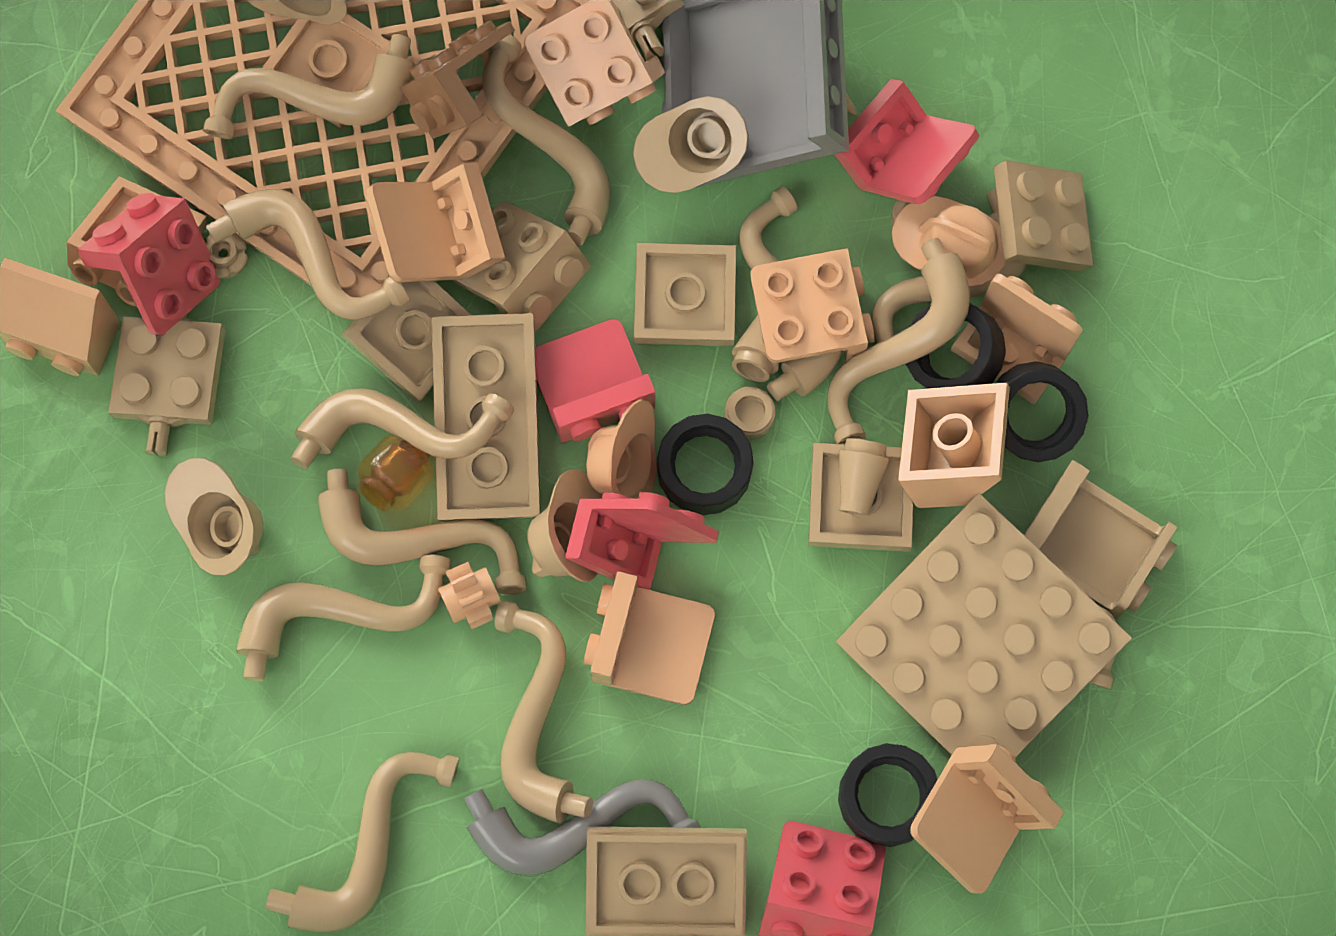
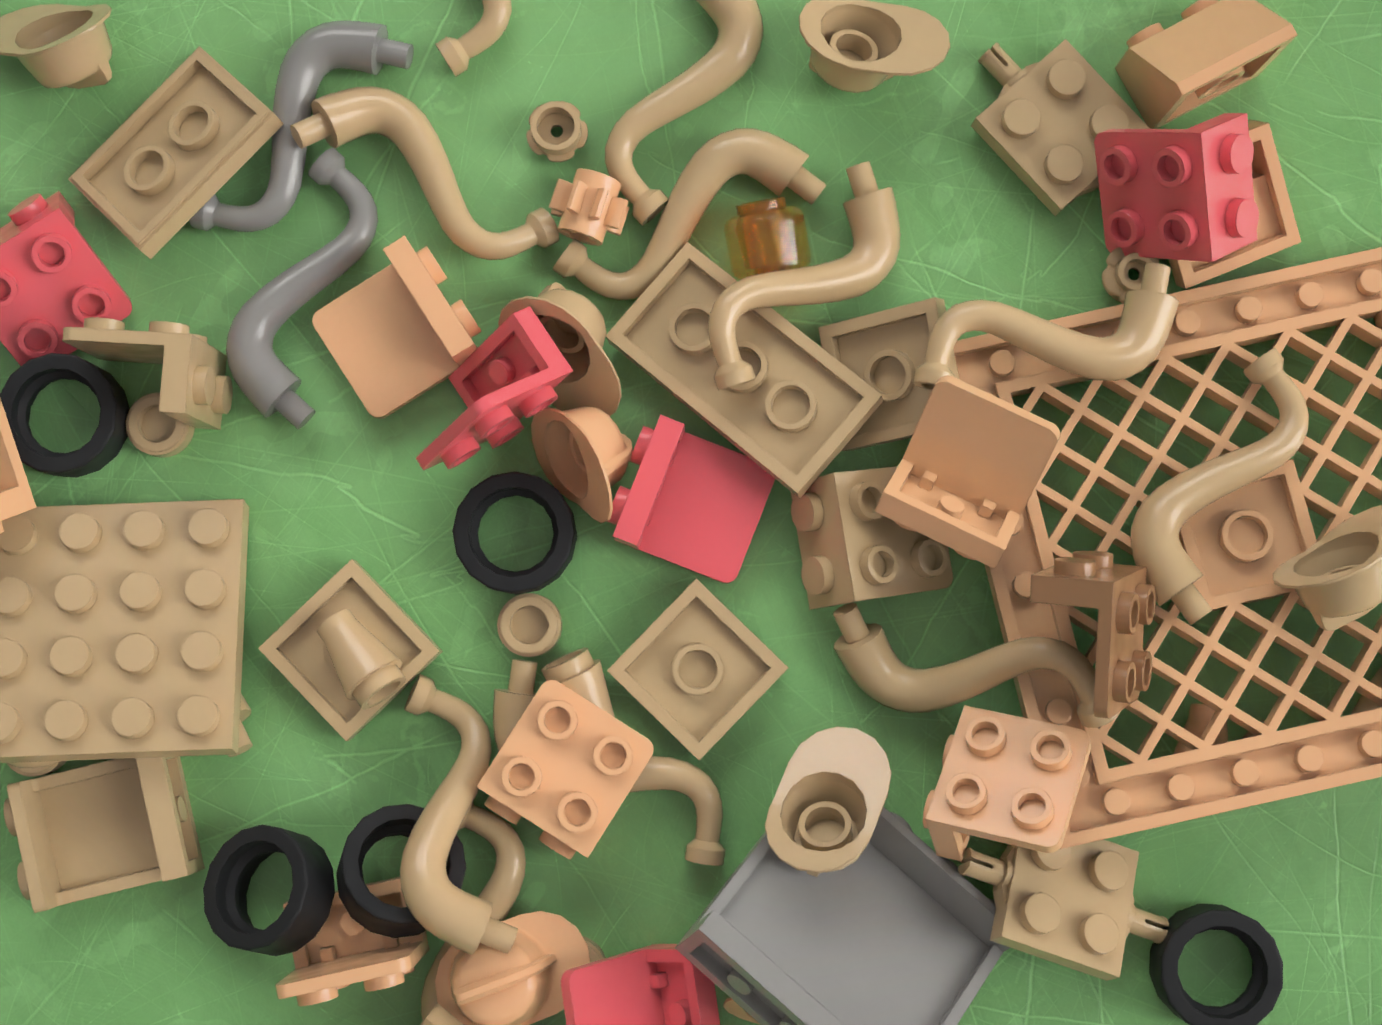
camera: 135 degrees right, 10 degrees up
(438, 650) = (553, 115): none -> tan plate
(747, 716) = (251, 335): none -> light grey animal
(783, 756) = (192, 370): none -> tan bracket
(839, 737) = (154, 431): none -> tan tile
(953, 443) = (302, 776): light nougat slope -> none

